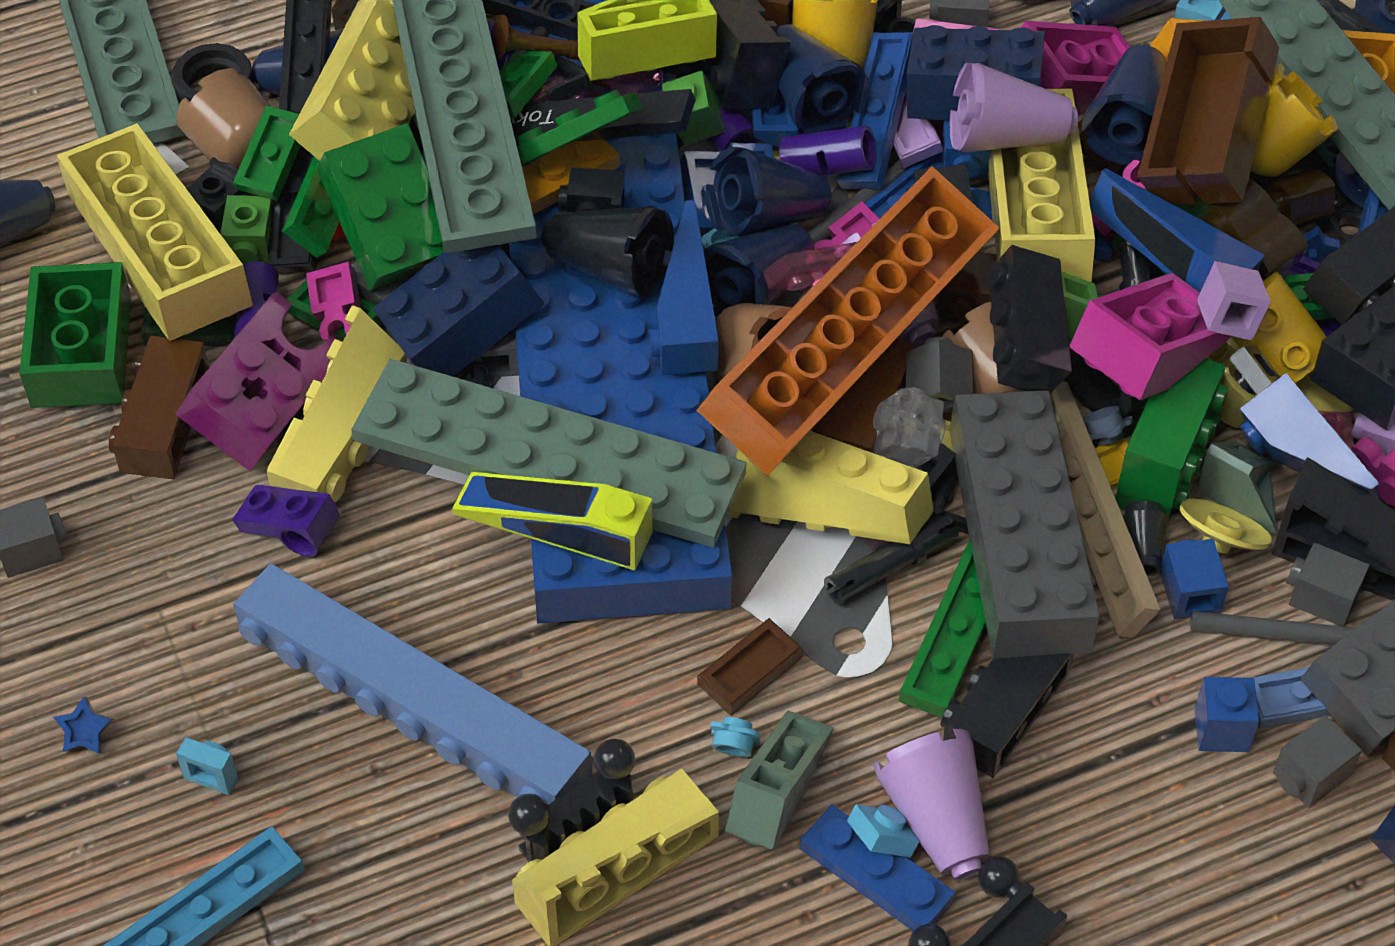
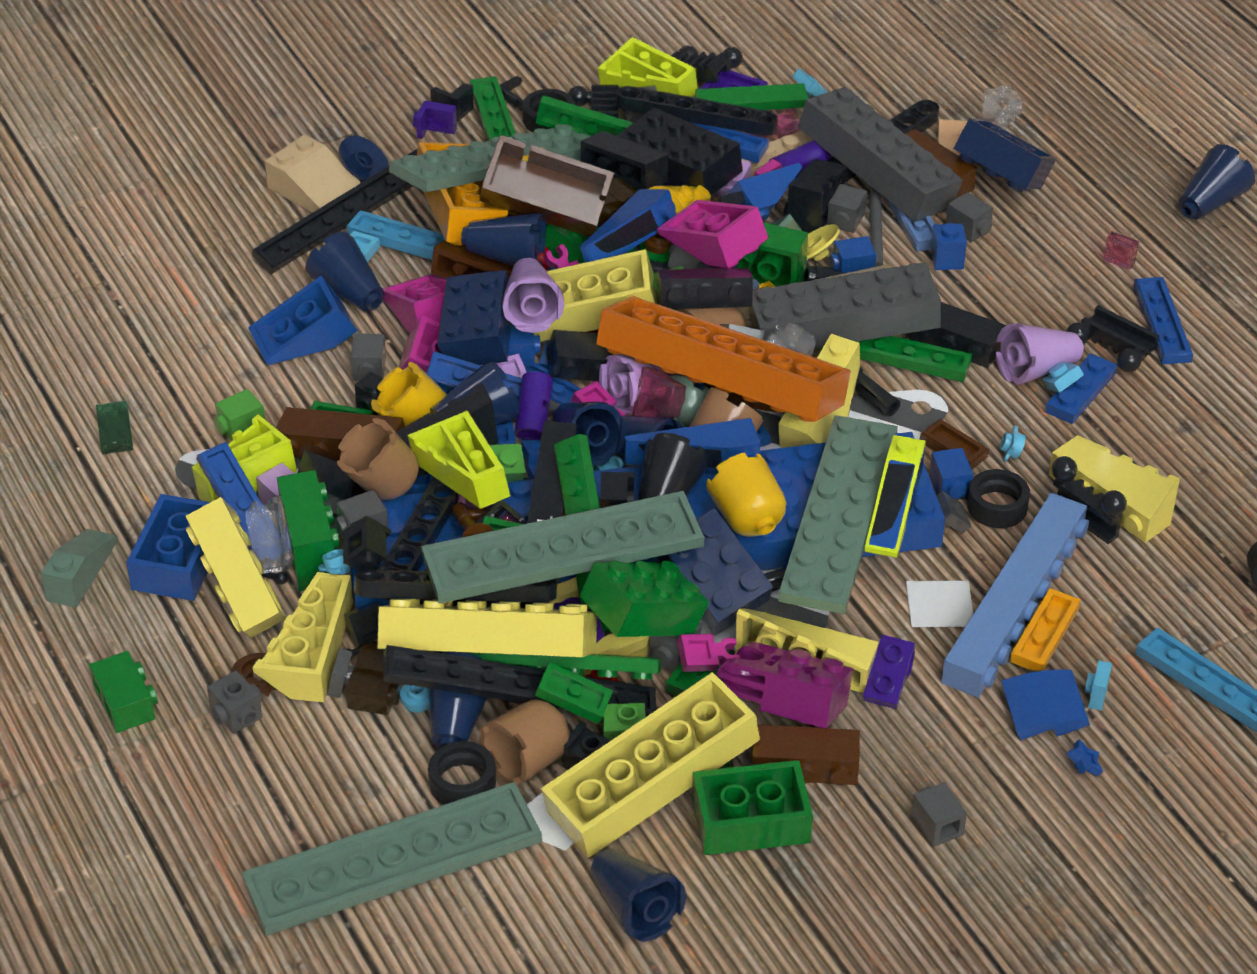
camera: 95 degrees left, 10 degrees down
(196, 696) = (1045, 702): none -> blue slope
(333, 719) = (1045, 630): none -> light orange plate
(428, 607) = (939, 603): none -> white sticker
(554, 327) = (747, 495): none -> yellow cylinder
(588, 632) = (954, 513): none -> flat silver plate
(609, 667) = (1002, 482): none -> black tyre
(669, 642) = (951, 472): none -> blue brick
(777, 780) = (1043, 422): sand green slope -> none
(1233, 300) = (693, 191): lavender brick -> none

